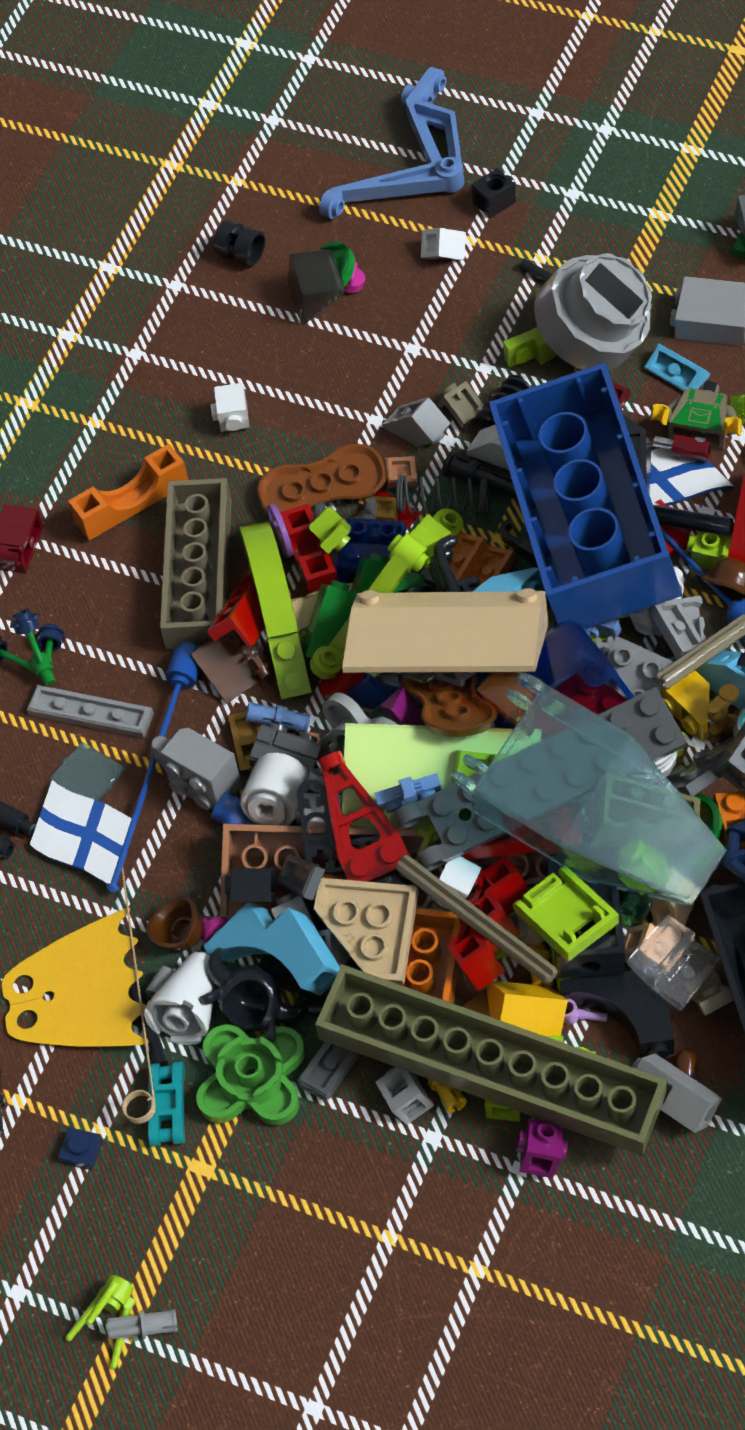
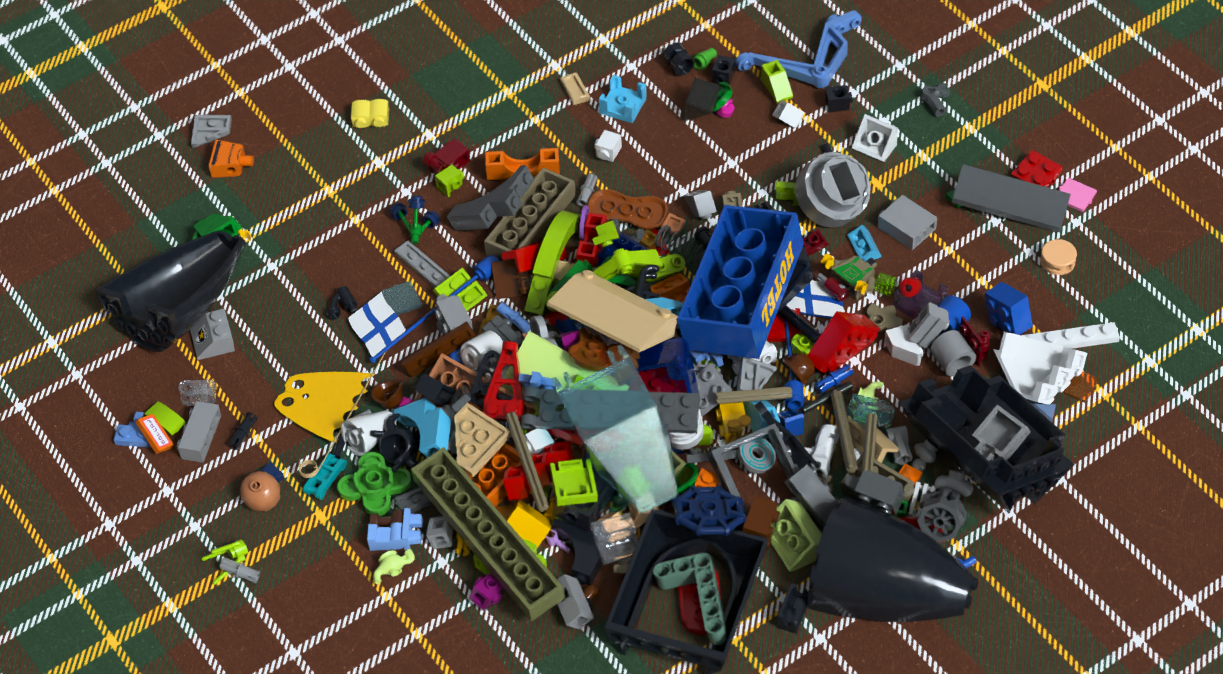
camera: 25 degrees right, 5 degrees down
(36, 568) = (449, 180): none -> lime brick
(89, 1199) = (260, 491): none -> nougat cylinder
(120, 353) = (575, 88): none -> tan tile
(127, 584) = (499, 202): none -> dark grey arch
(187, 713) = (469, 296): none -> lime slope
(202, 339) = (622, 102): none -> medium azure panel
(207, 820) = (430, 354): none -> reddish brown tile
(244, 484) = (586, 190): none -> light grey axle
(272, 226) = (704, 58): none -> bright green cone
(311, 228) = (723, 69): none -> black brick
(342, 1132) = (398, 535): none -> light blue hips
(368, 1184) = (392, 563): none -> yellowish green piece
(396, 208) = (776, 81): none -> lime slope
(586, 219) = (876, 138): none -> white slope
(612, 131) = (931, 96): none -> dark grey bar

